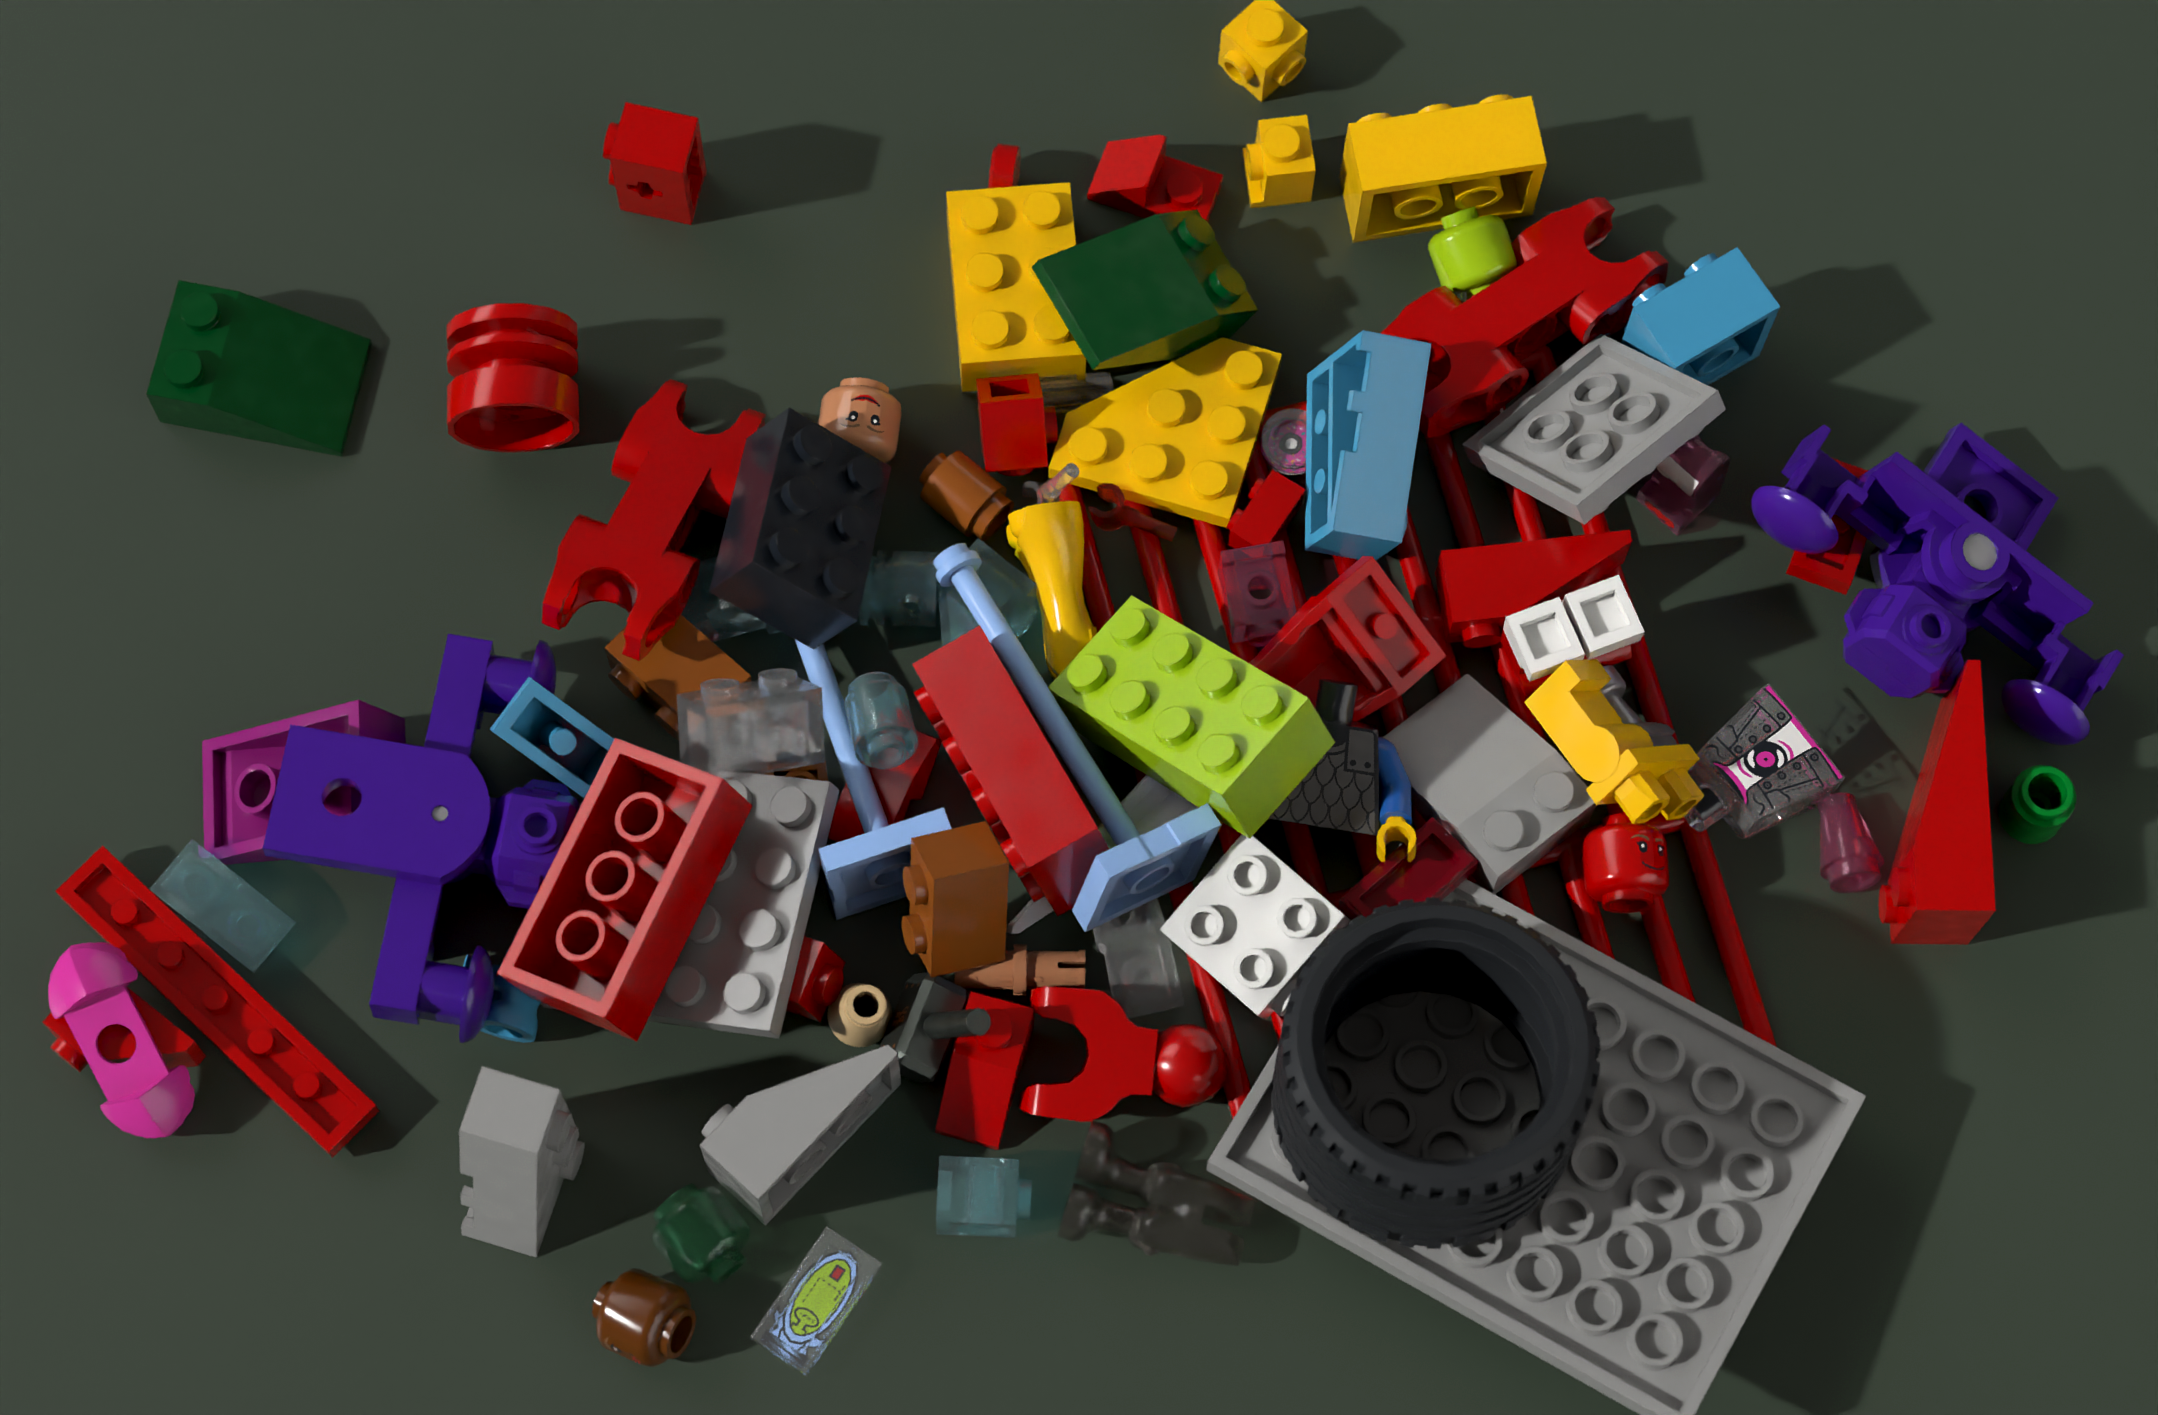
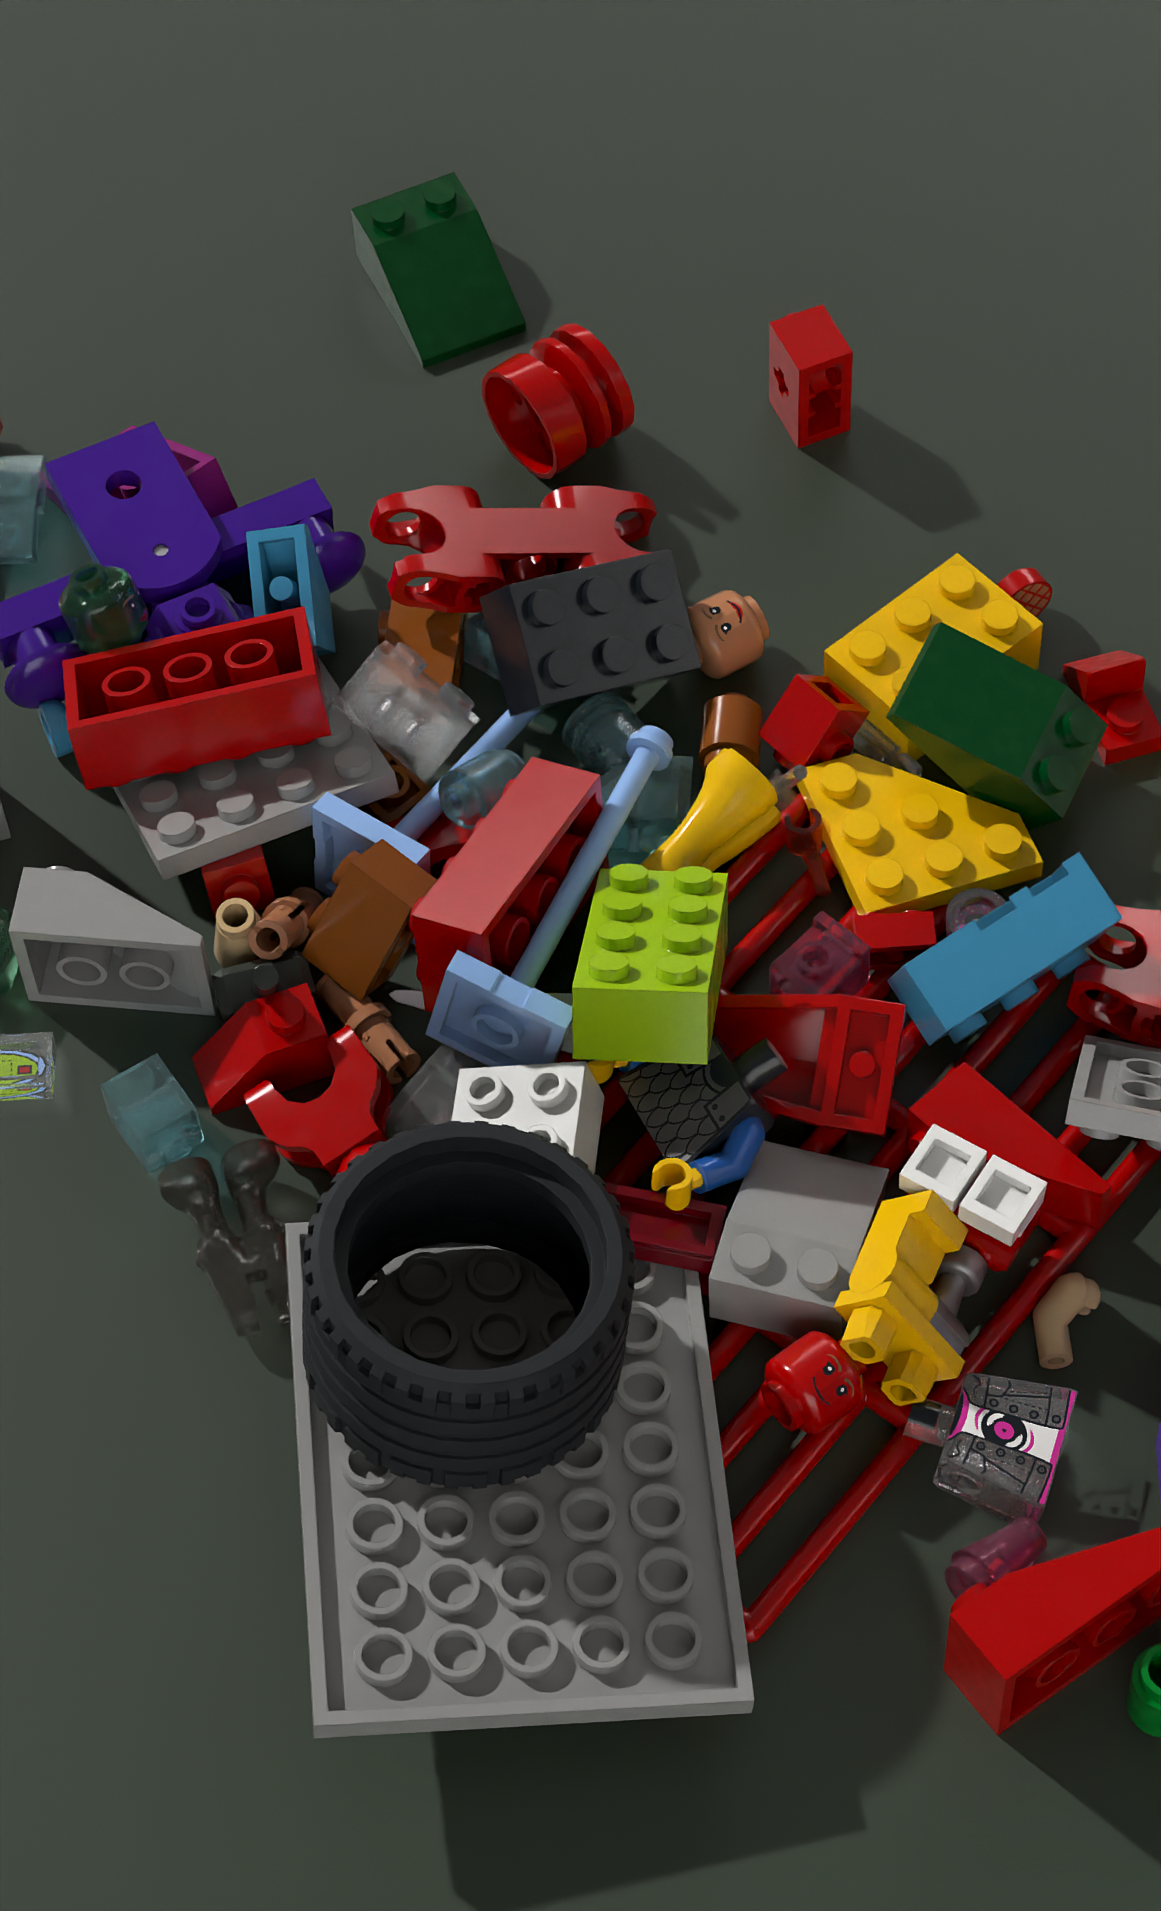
camera: 60 degrees right, 15 degrees down
(471, 903) = (103, 608): none -> head
(886, 967) = (283, 919): none -> nougat pin
(1669, 645) = (1051, 1316): none -> tan arm

